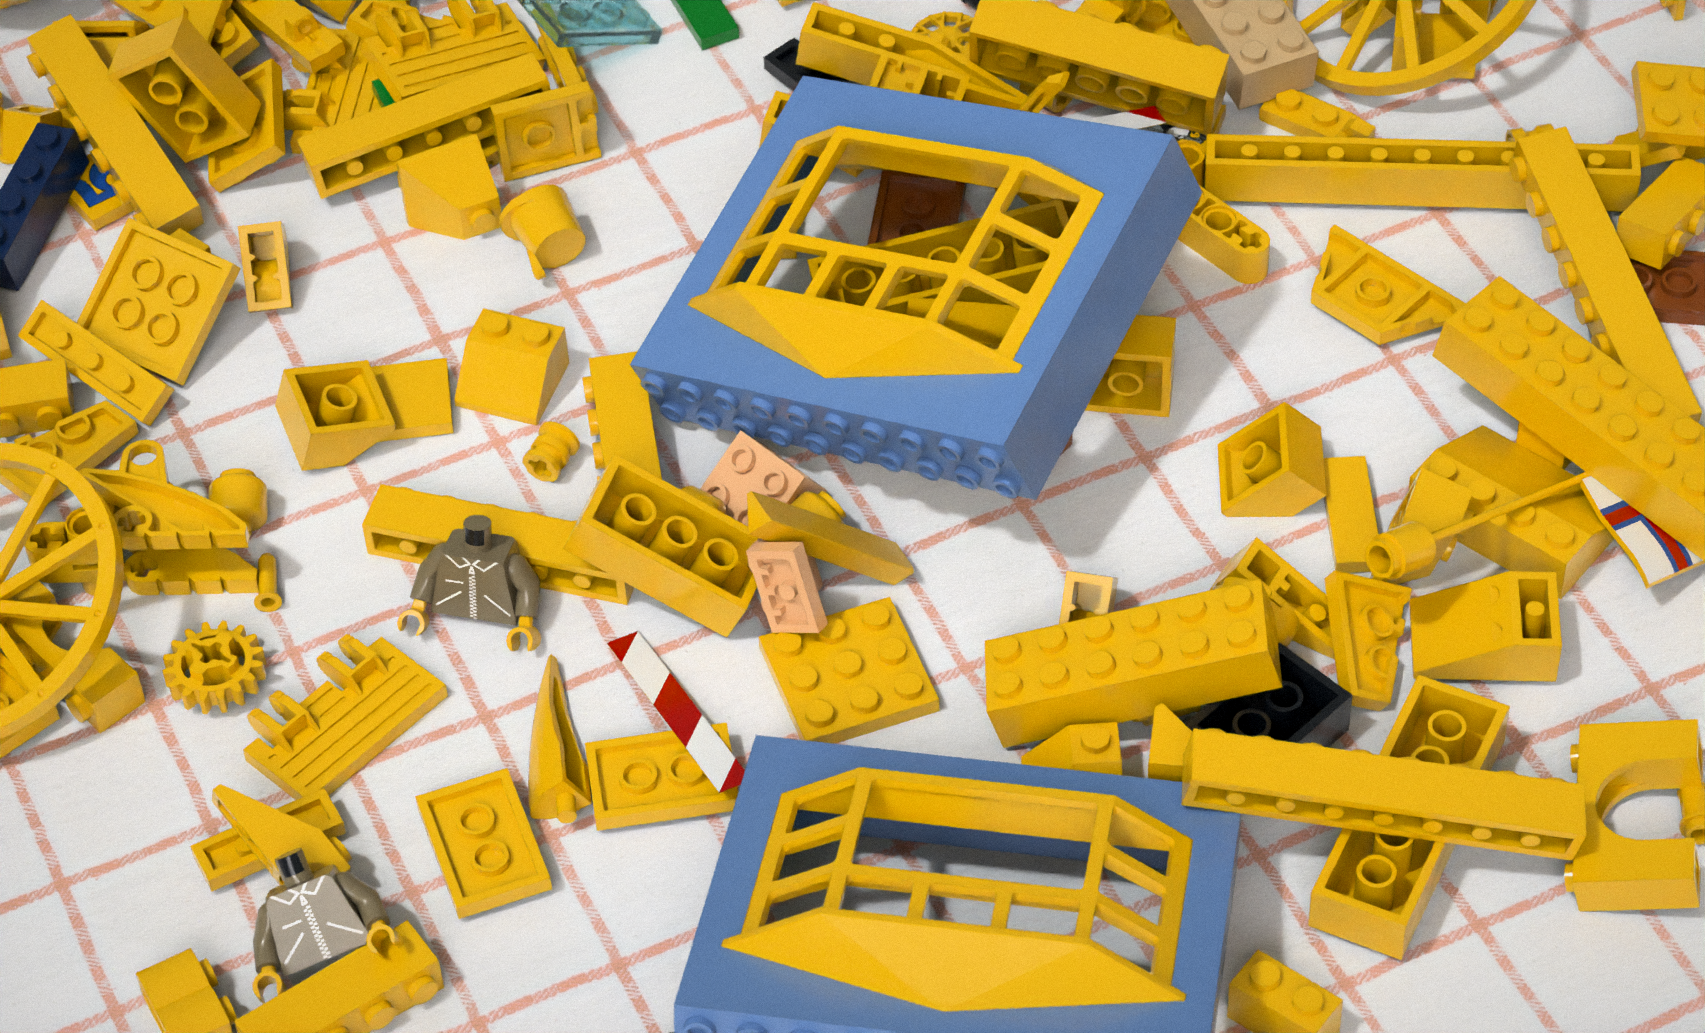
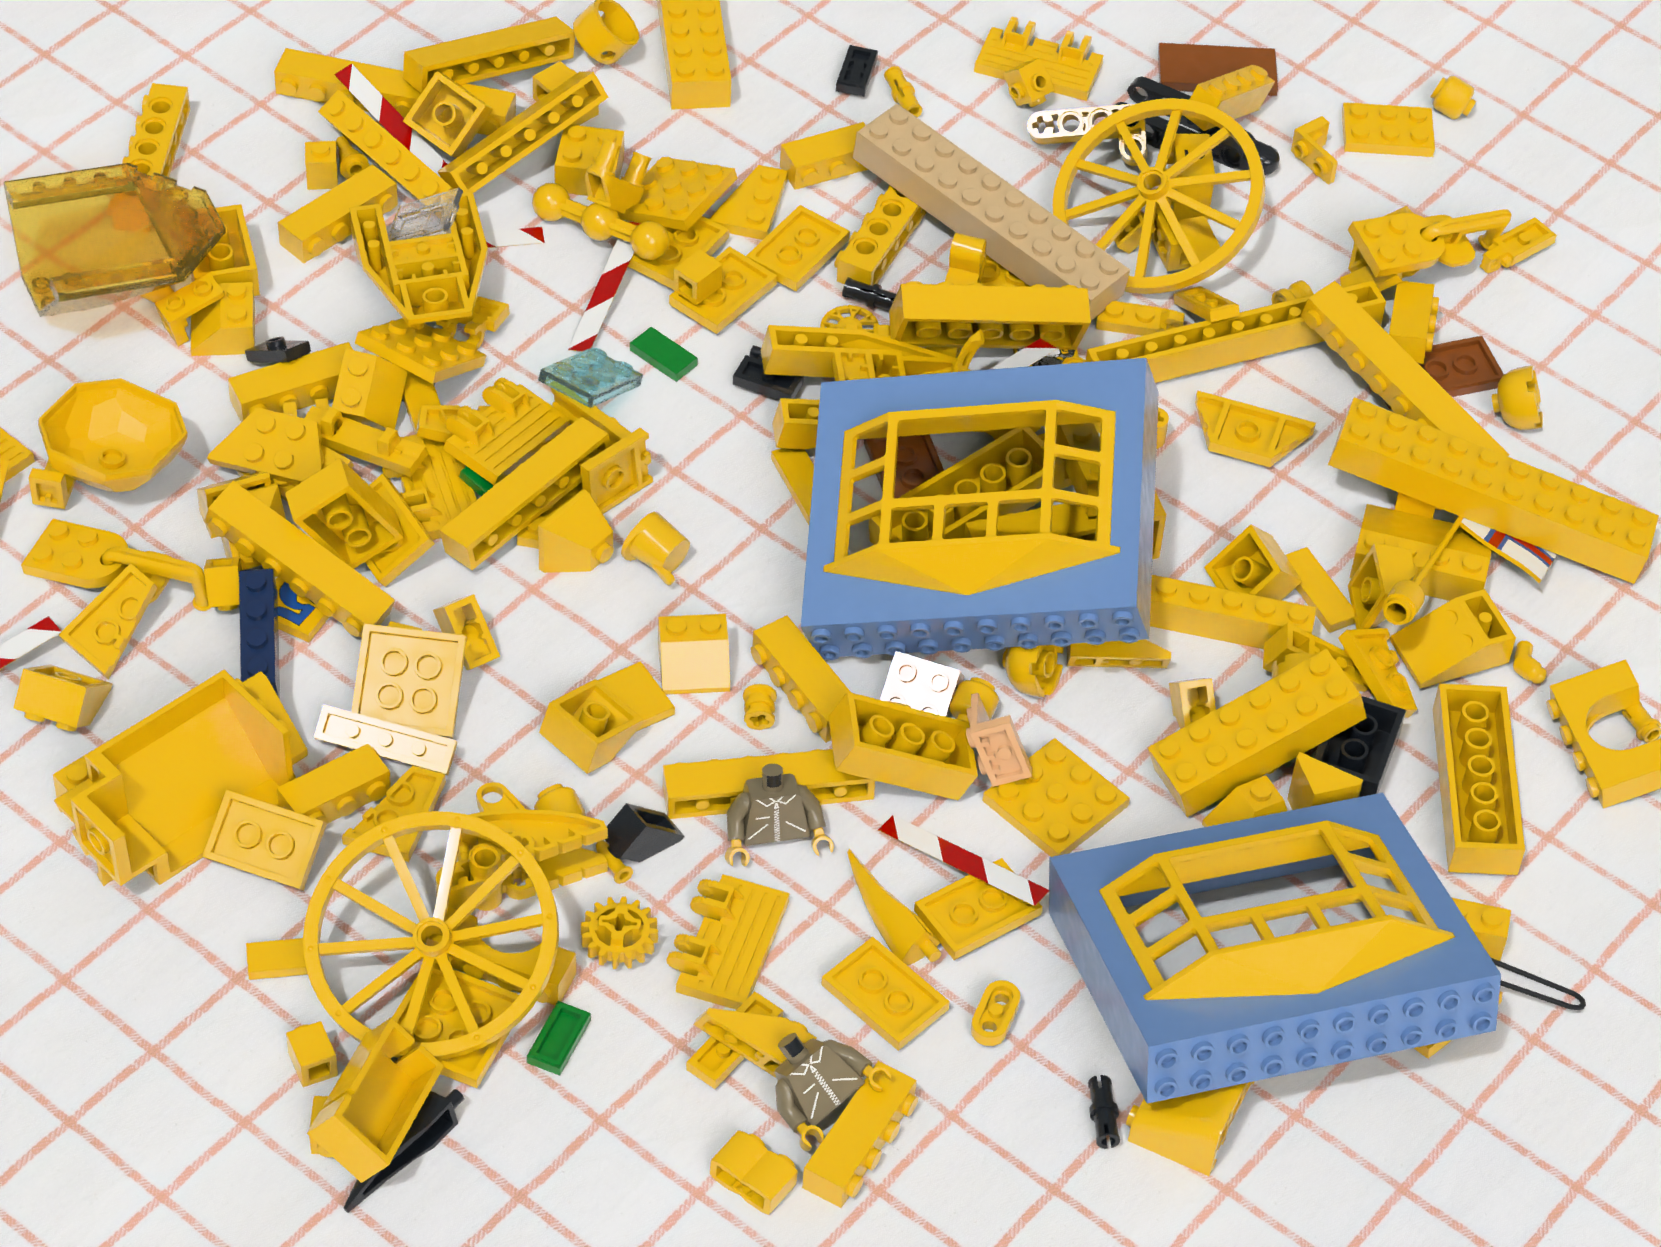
camera: 30 degrees left, 0 degrees up
(72, 770) = (558, 1038): none -> green tile
(313, 557) = (640, 833): none -> black slope
(598, 912) = (994, 1015): none -> yellow plate
(827, 539) = (1023, 711): yellow slope -> none
(913, 505) = (1033, 669): none -> yellow cylinder
(1039, 518) = (1118, 654): none -> yellow slope
(1178, 495) = (1222, 612): none -> yellow brick
(1383, 794) = (1472, 768): yellow brick -> none
(1404, 120) = (1206, 304): none -> yellow tile
(1576, 689) = (1526, 665): none -> yellow arm

